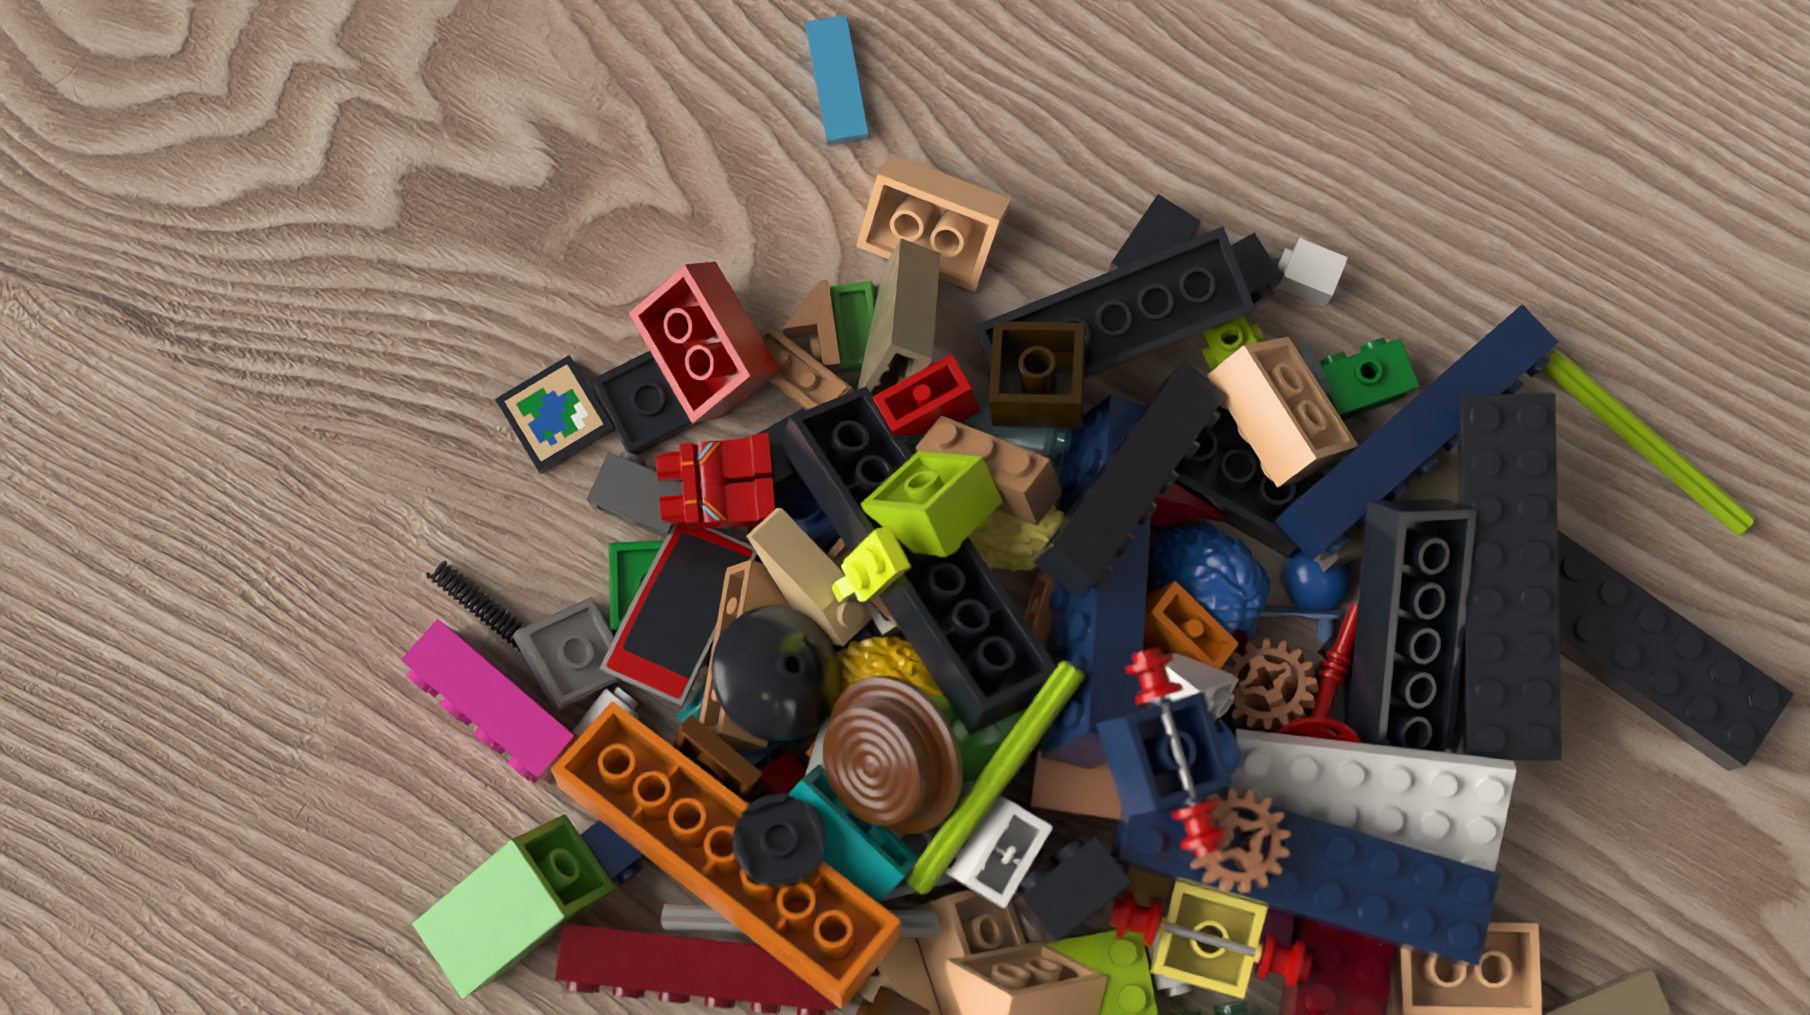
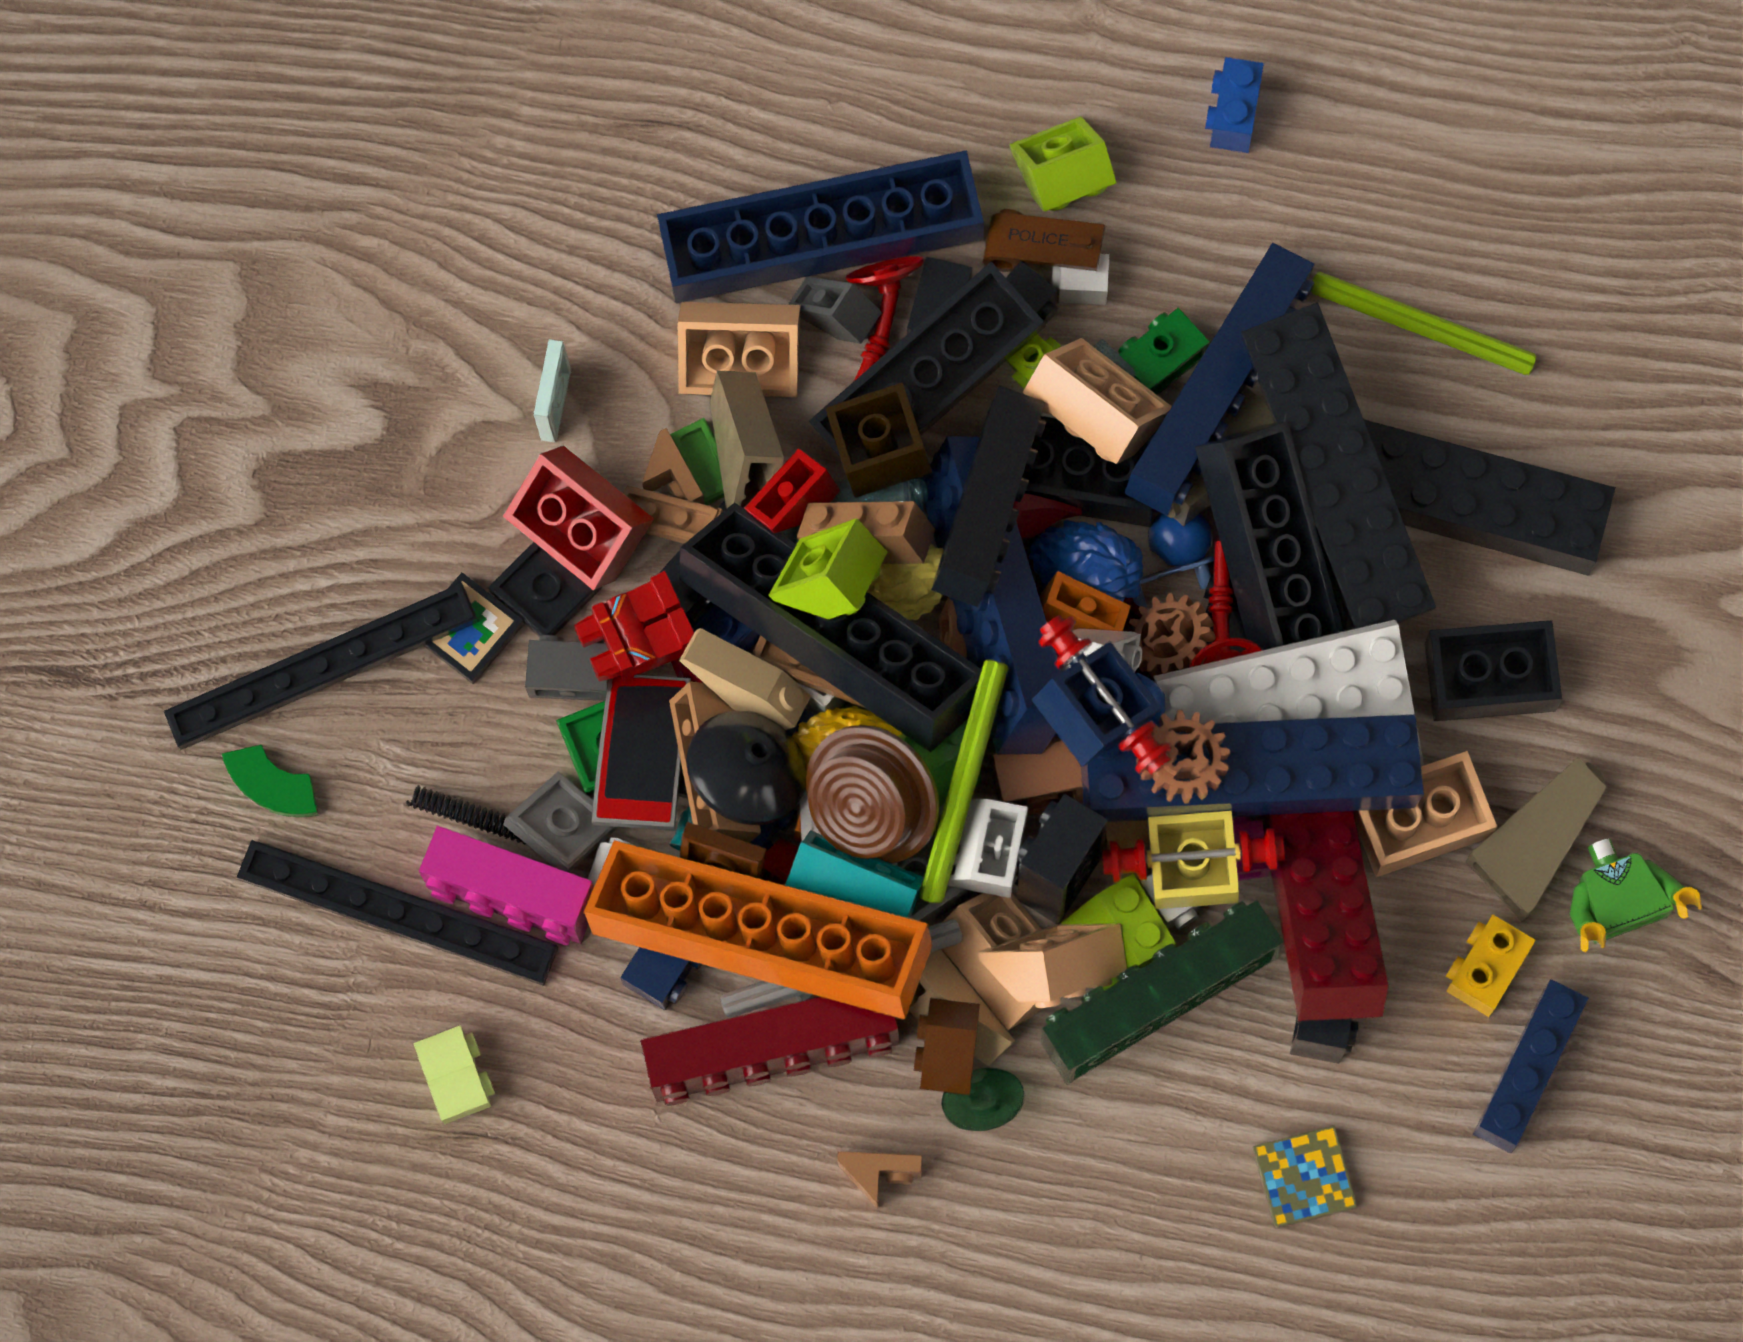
camera: 15 degrees left, 5 degrees down
(297, 507) = (268, 786): none -> green tile
(370, 877) = (453, 1074): none -> yellowish green brick
(378, 685) = (397, 912): none -> black tile
(393, 402) = (320, 666): none -> black tile
(513, 904) = (588, 1048): slope -> none
(725, 200) = (552, 391): none -> light aqua tile
(779, 841) = (801, 897): black tile -> none
(836, 80) = (609, 256): dark azure tile -> none
(871, 567) = (796, 643): neon yellow hinge -> none
(1047, 215) = (836, 309): none -> dark grey slope
(1062, 124) = (821, 226): none -> dark blue brick
(1109, 200) = (887, 278): none -> red dish
(1282, 220) = (1042, 242): none -> reddish brown door
(1334, 145) = (1064, 164): none -> lime slope
(1534, 146) = (1236, 104): none -> blue brick
(1594, 841) = (1493, 670): none -> black brick

